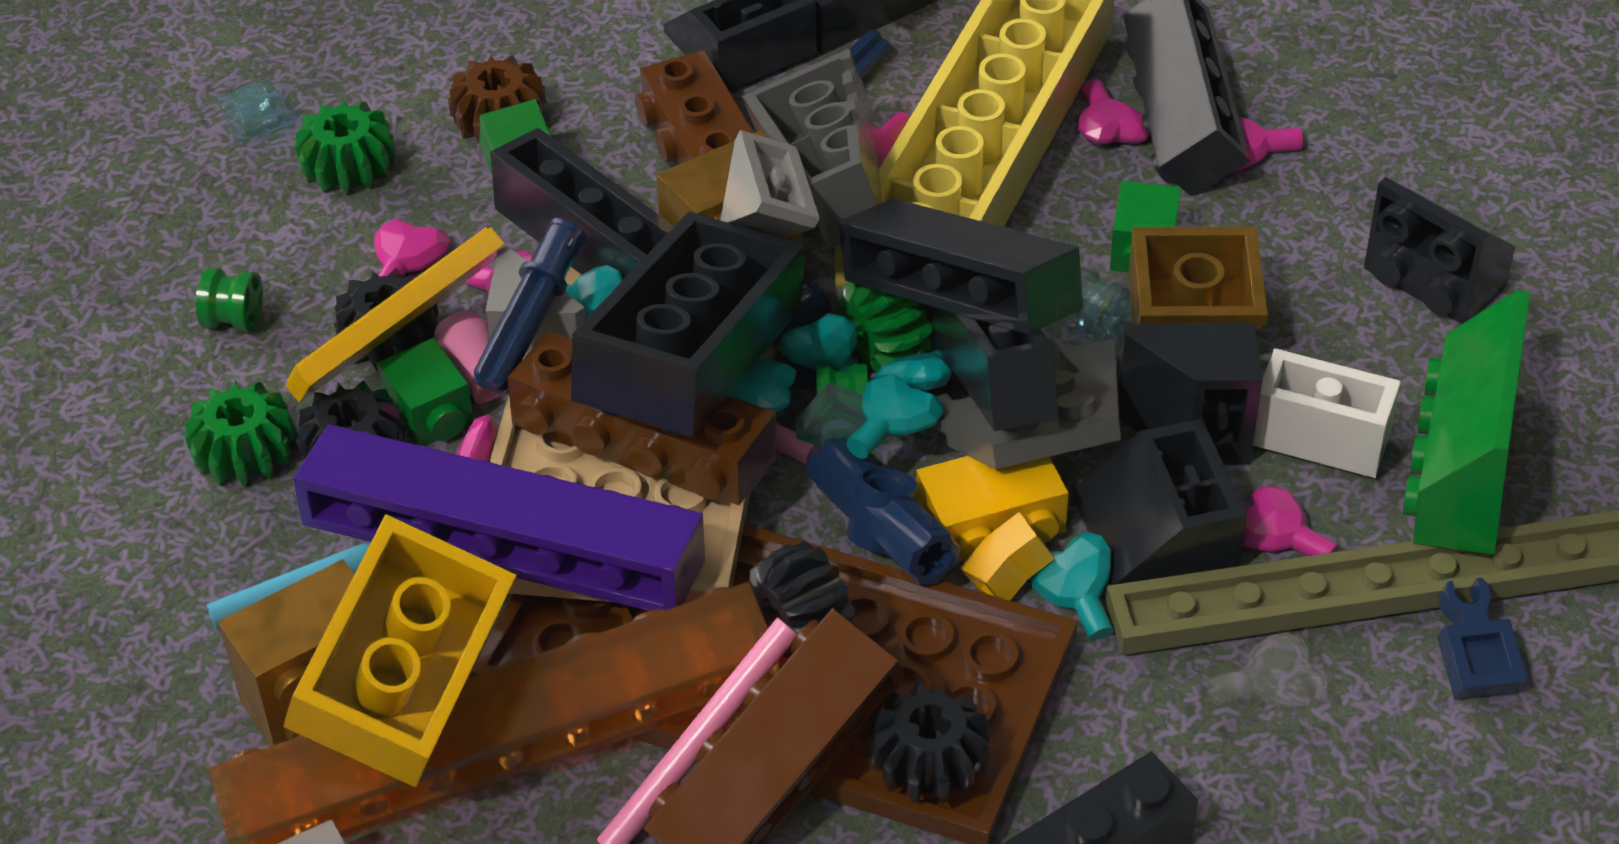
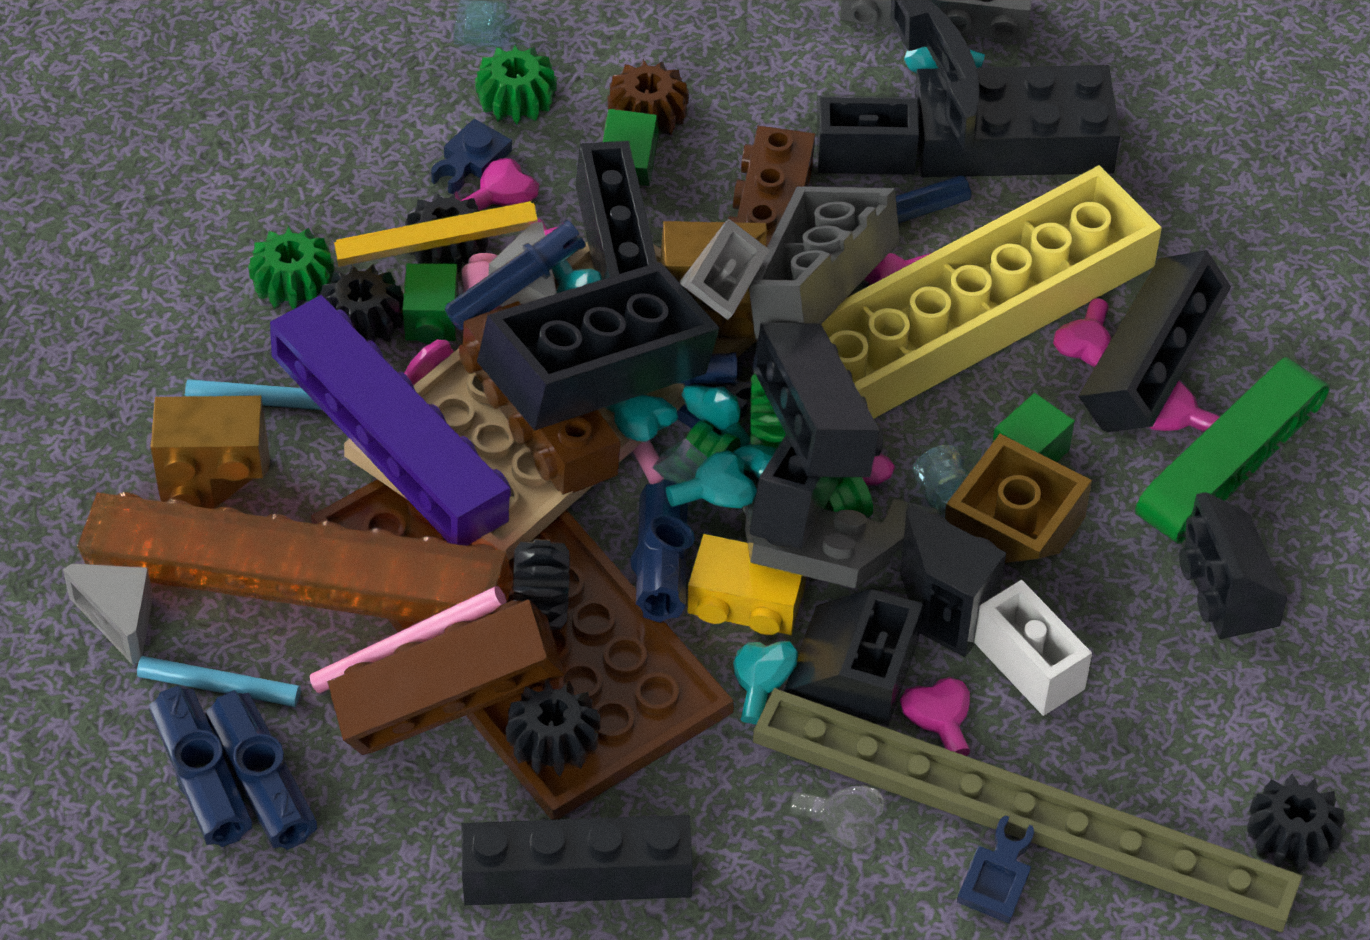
camera: 30 degrees right, 5 degrees up
(229, 299) = (354, 164): green wheel -> none
(344, 232) = (470, 153): none -> dark blue plate
(398, 650) = (240, 477): yellow brick -> none
(1007, 559) = (723, 631): yellow piece -> none
(1332, 153) = (1233, 446): none -> green beam
(1467, 430) = (1122, 720): green slope -> none

